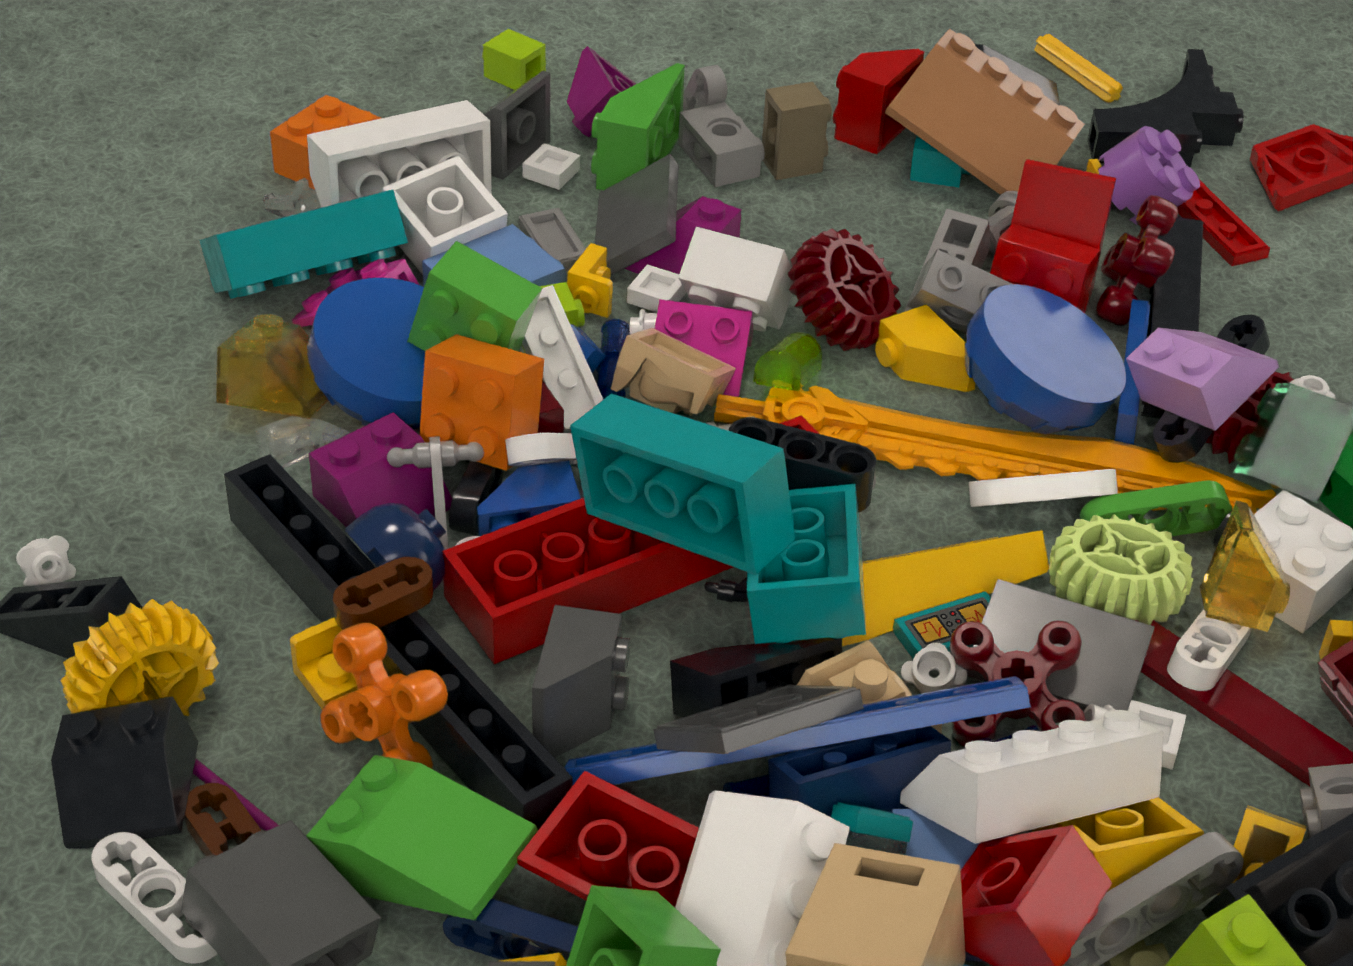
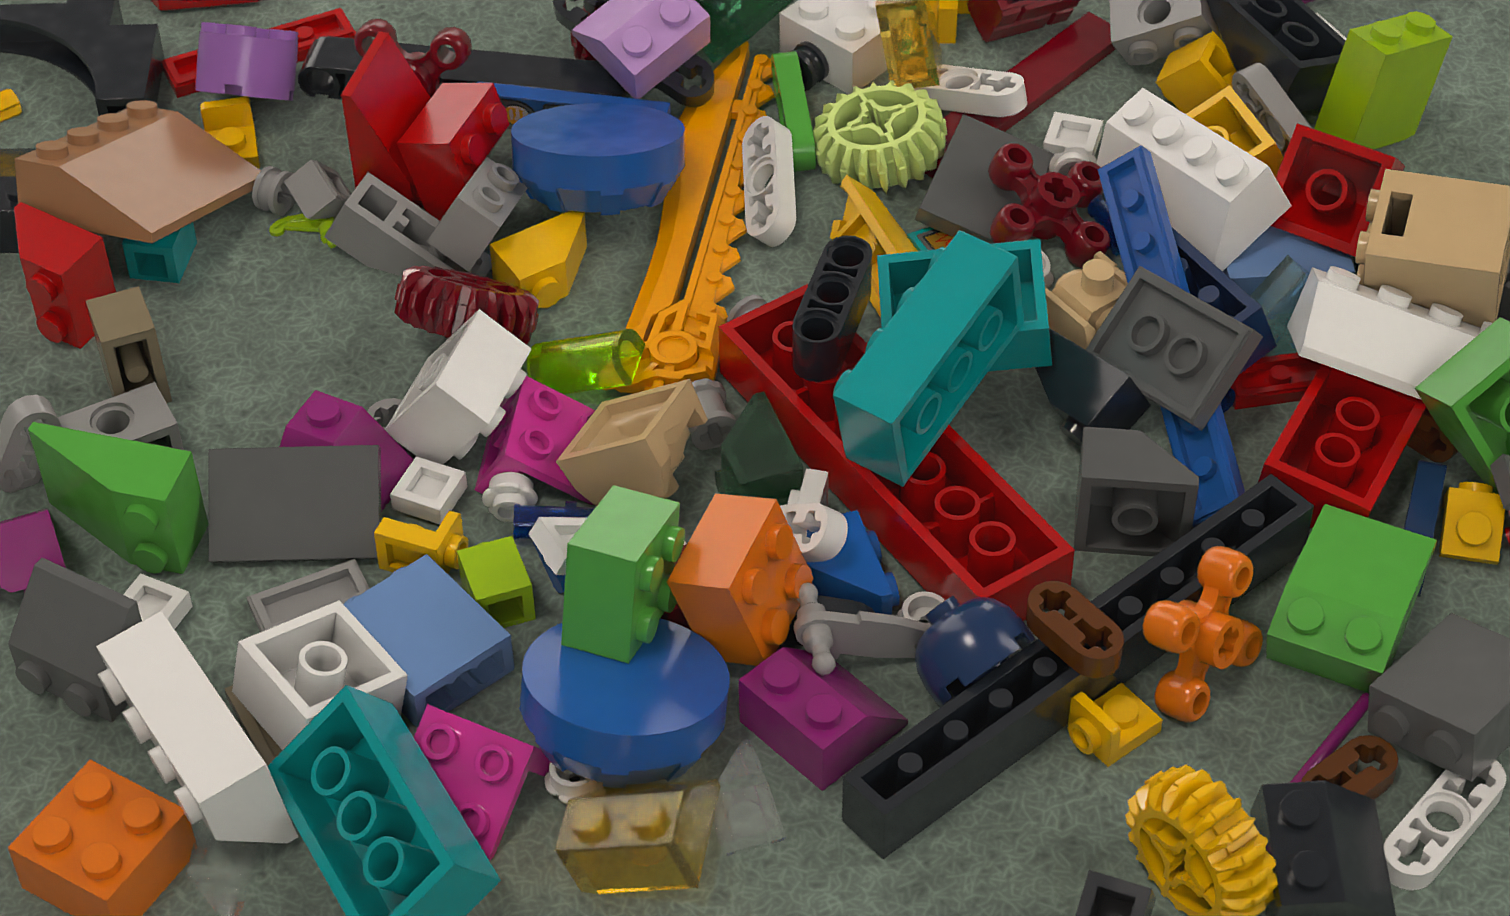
camera: 90 degrees left, 5 degrees up
(873, 821) = (1266, 278): teal tile -> none

